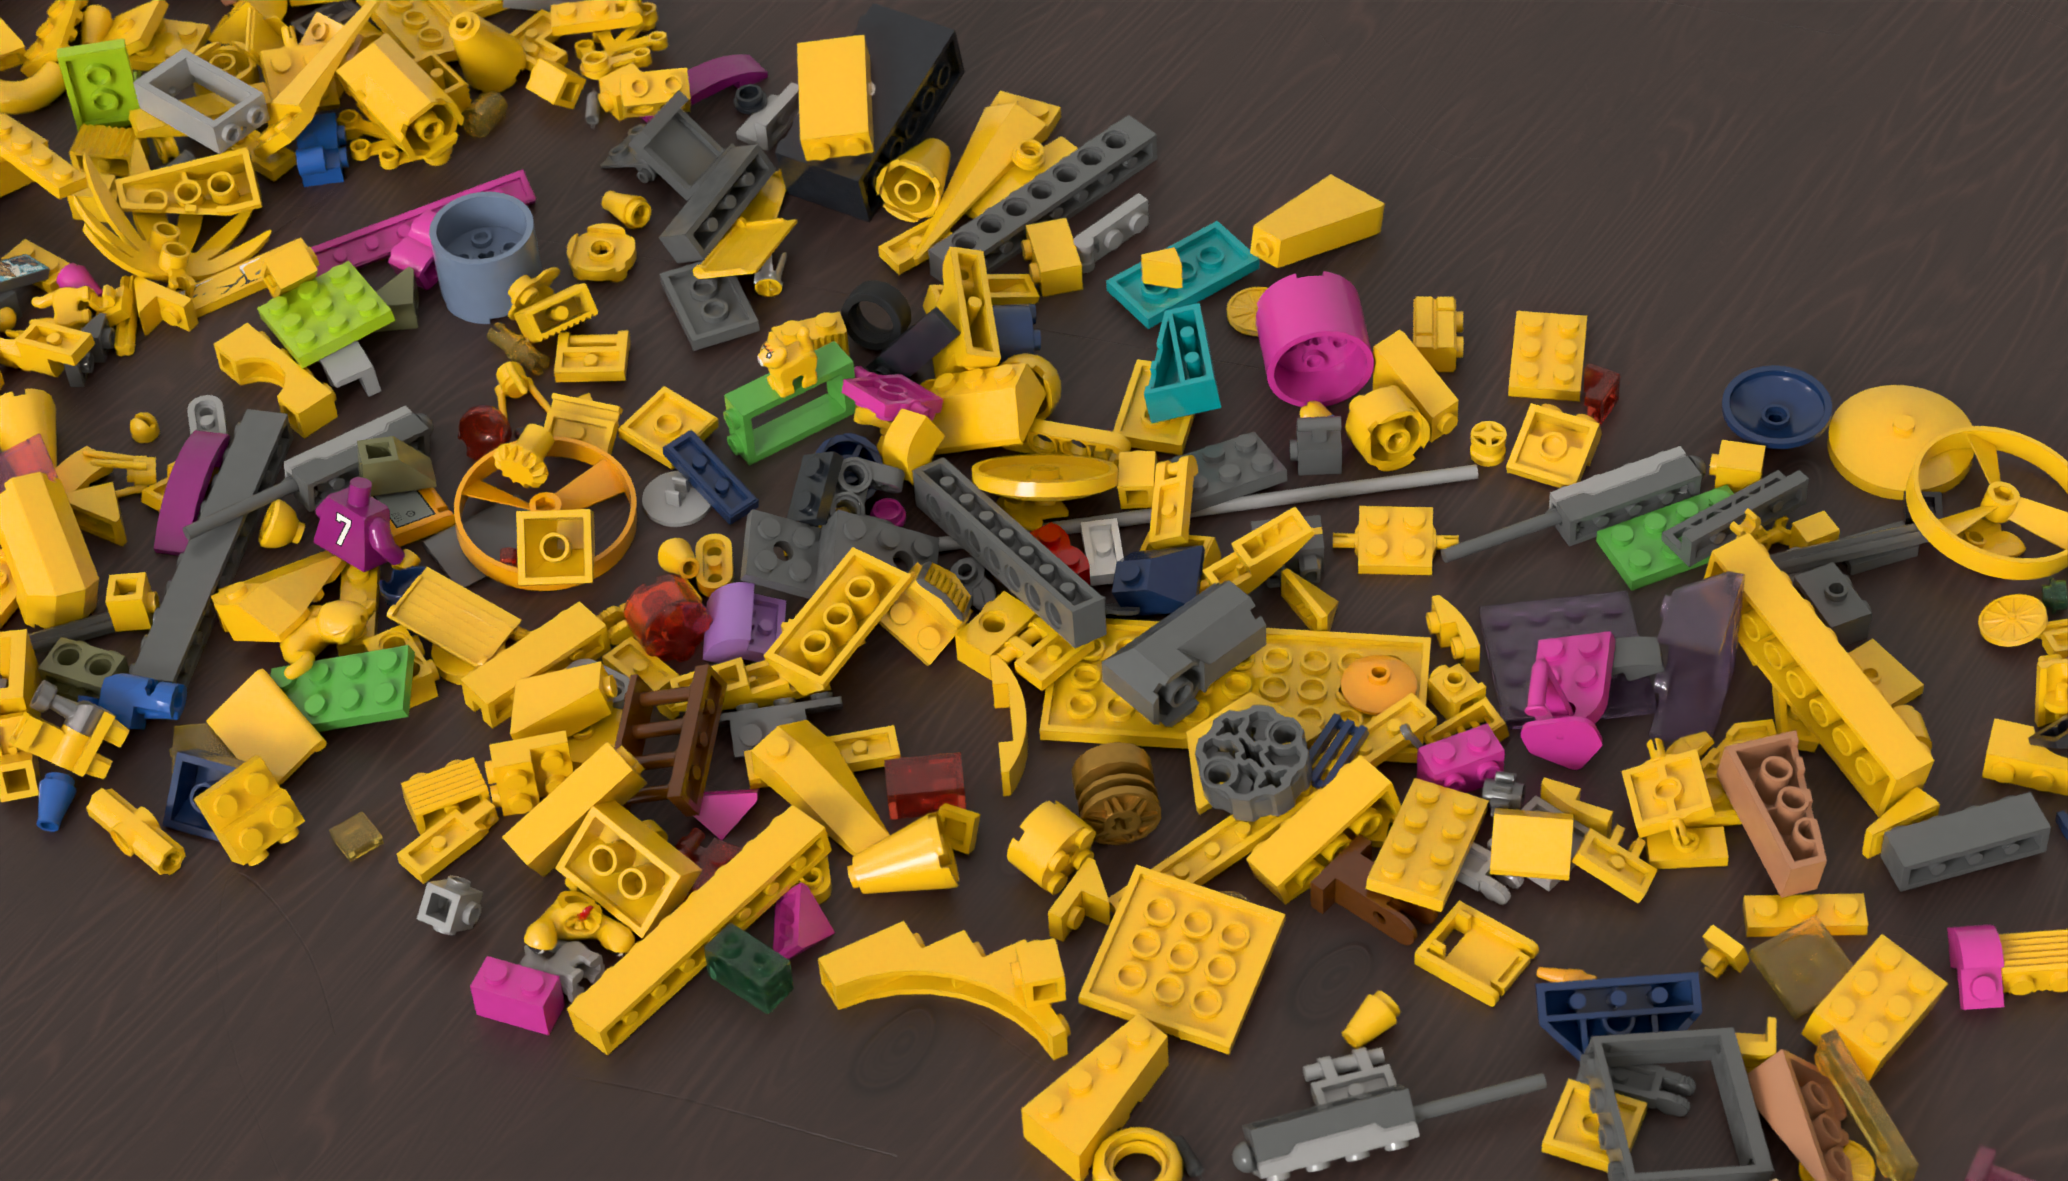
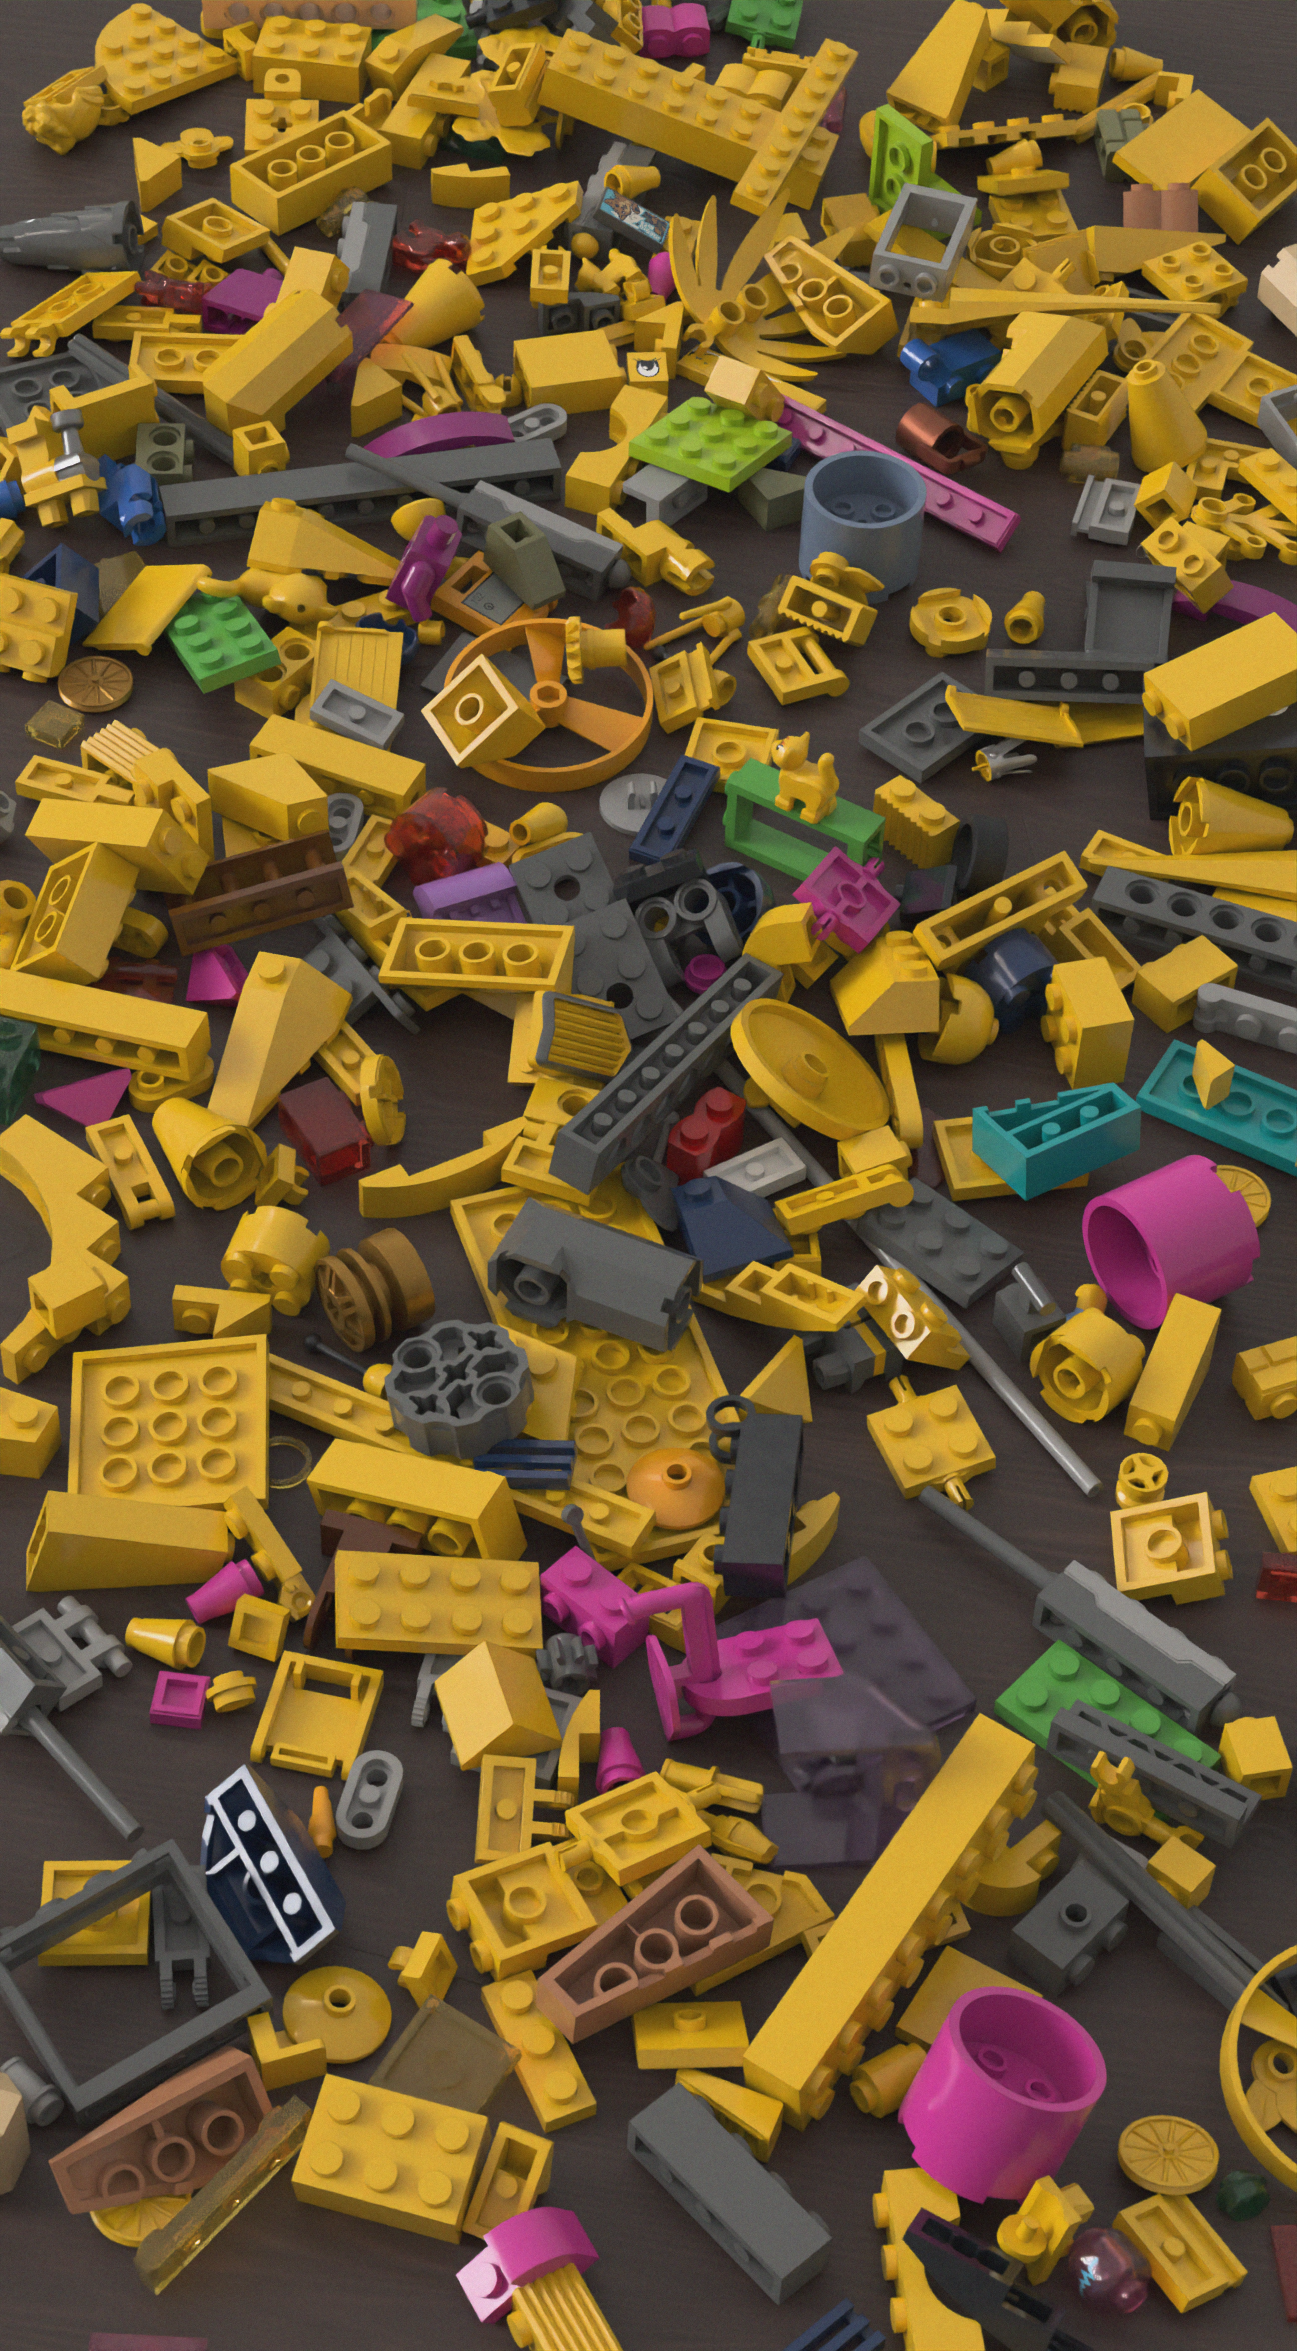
camera: 60 degrees right, 0 degrees up
(131, 438) = (473, 379): none -> yellow hinge
(159, 379) = (569, 371): none -> yellow brick
(199, 333) = (648, 371): none -> yellow brick
(324, 796) = (95, 684): none -> pearl gold wheel
(395, 189) = (938, 440): none -> copper piece
(416, 390) = (658, 553): none -> yellow plate
(498, 627) = (356, 715): none -> light grey plate
(539, 123) = (1106, 510): none -> light grey plate
(870, 916) = (130, 1171): none -> yellow plate
(923, 733) = (379, 1096): none -> yellow tile
(1076, 314) = (1087, 1023): none -> yellow brick
(1187, 826) = (373, 1376): none -> hinge
(1277, 1020) = (123, 1544): none -> yellow slope
(1311, 500) = (911, 1318): none -> yellow plate
(1329, 928) = (271, 1556): none -> yellow hinge
(1343, 971) = (223, 1590): none -> dark pink cone
(1387, 960) = (259, 1627): none -> yellow tile
(1422, 1031) = (180, 1700): none -> dark pink tile
(1429, 630) = (761, 1495): none -> black hinge
(1437, 993) = (232, 1691): none -> yellow plate
(1567, 943) = (367, 1803): none -> light grey plate
(1603, 794) = (617, 1760): none -> dark pink cone
(1634, 752) = (734, 1791): none -> yellow axle
(1701, 884) = (518, 1912): none -> yellow plate
(1734, 1008) = (348, 2031): none -> yellow dish
(1847, 817) = (690, 2035): none -> yellow plate
(1916, 939) = (511, 2179): none -> yellow slope
(1970, 664) = (1001, 2094): none -> dark pink brick

